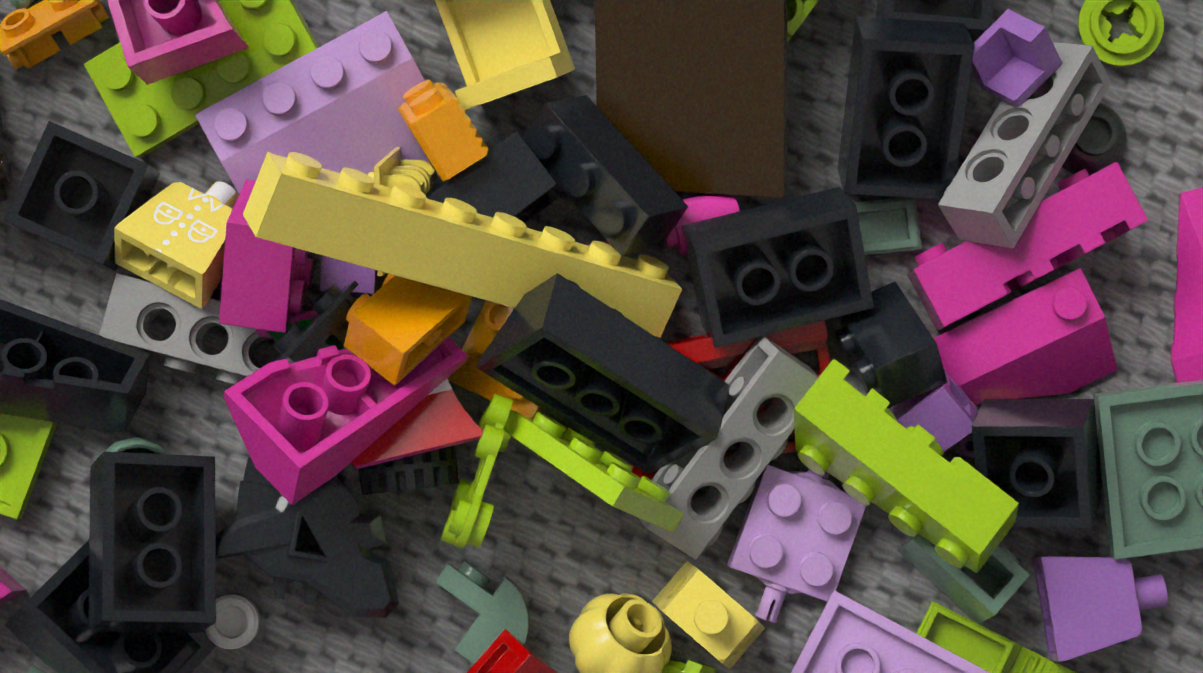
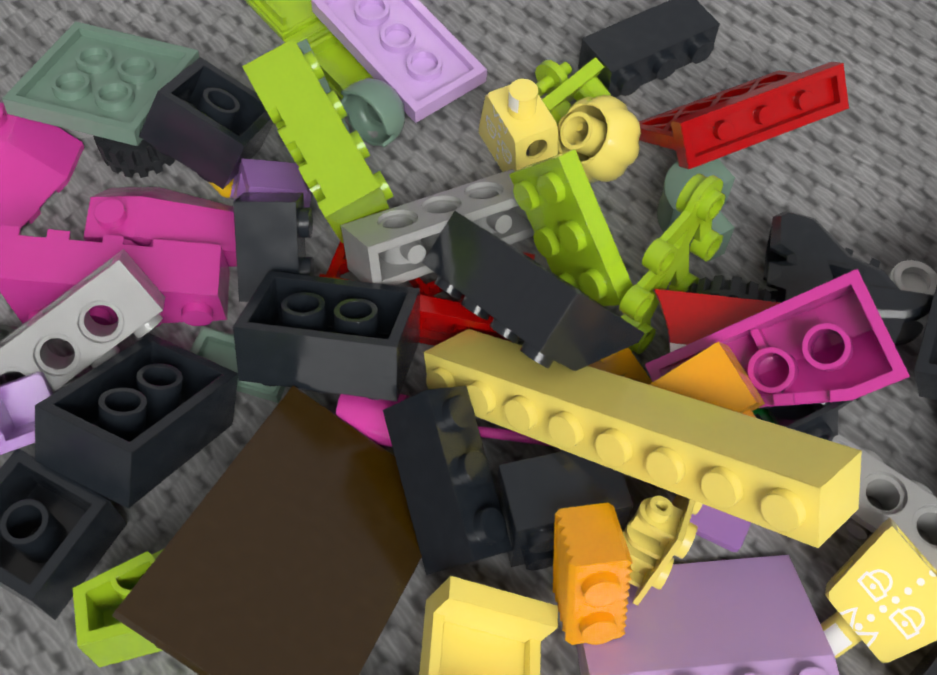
camera: 155 degrees left, 25 degrees down
(260, 277) = (801, 577): dark pink brick -> none
(795, 536) = (427, 163): lavender plate -> none
(882, 582) = (374, 107): none -> sand green hair
(1092, 602) = (233, 40): medium lavender torso -> none

